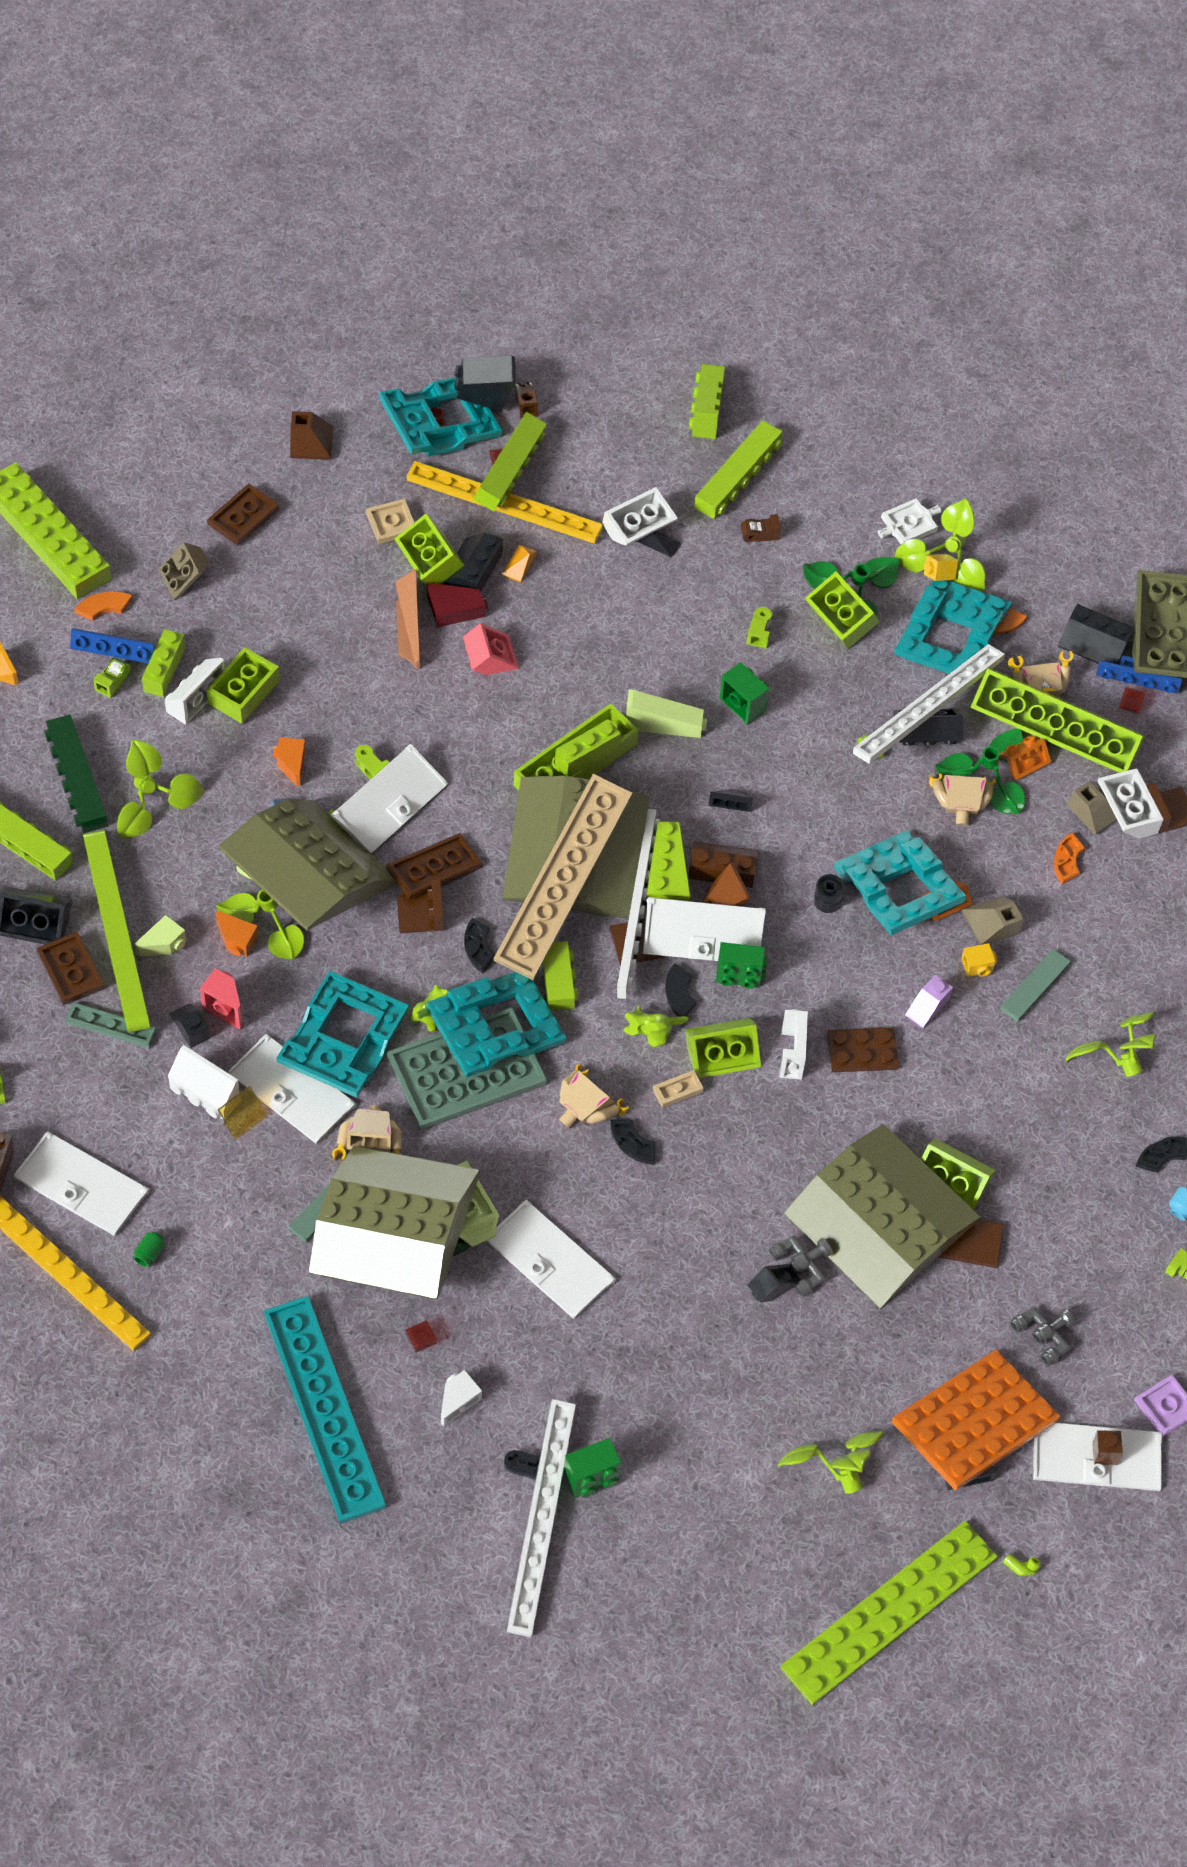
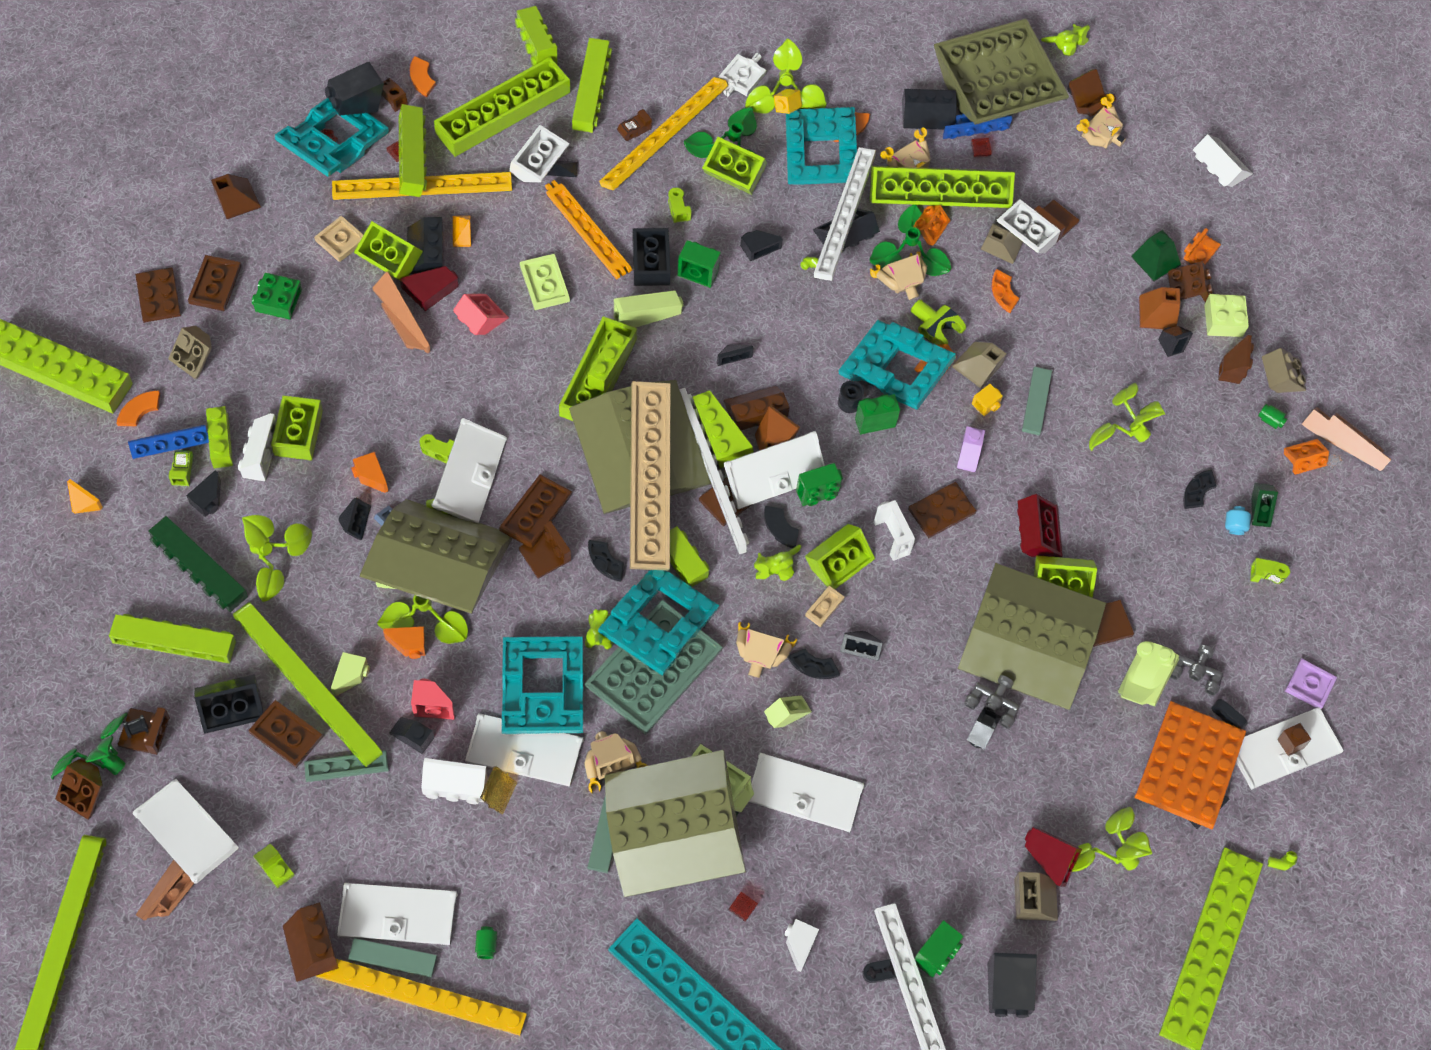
camera: 30 degrees left, 5 degrees up
(54, 1221) = (392, 957): none -> sand green tile
(121, 712) = (206, 495): none -> black slope
(182, 503) = (157, 295): none -> reddish brown plate
(252, 796) = (355, 518): none -> black slope
(296, 551) = (277, 296): none -> green brick
(565, 393) = (420, 76): none -> orange tile
(574, 647) = (544, 282): none -> yellowish green plate
(577, 1171) = (786, 711): none -> yellowish green slope
(631, 455) = (502, 106): none -> lime brick
(650, 613) = (587, 229): none -> light orange hinge
(650, 1538) = (1012, 984): none -> black slope
(694, 1143) = (861, 644): none -> black slope
(699, 666) = (651, 256): none -> black brick
(728, 1470) = (1035, 897): none -> dark tan slope
(770, 1437) = (1052, 854): none -> dark red slope
(788, 548) = (663, 133): none -> yellow plate
(824, 701) = (760, 243): none -> black slope
(845, 921) = (877, 413): none -> green brick
(958, 1112) = (1039, 527): none -> dark red slope
(971, 857) = (936, 320): none -> lime connector
(987, 1310) = (1148, 673): none -> yellowish green slope
(1052, 1392) = (1229, 714): none -> black beam

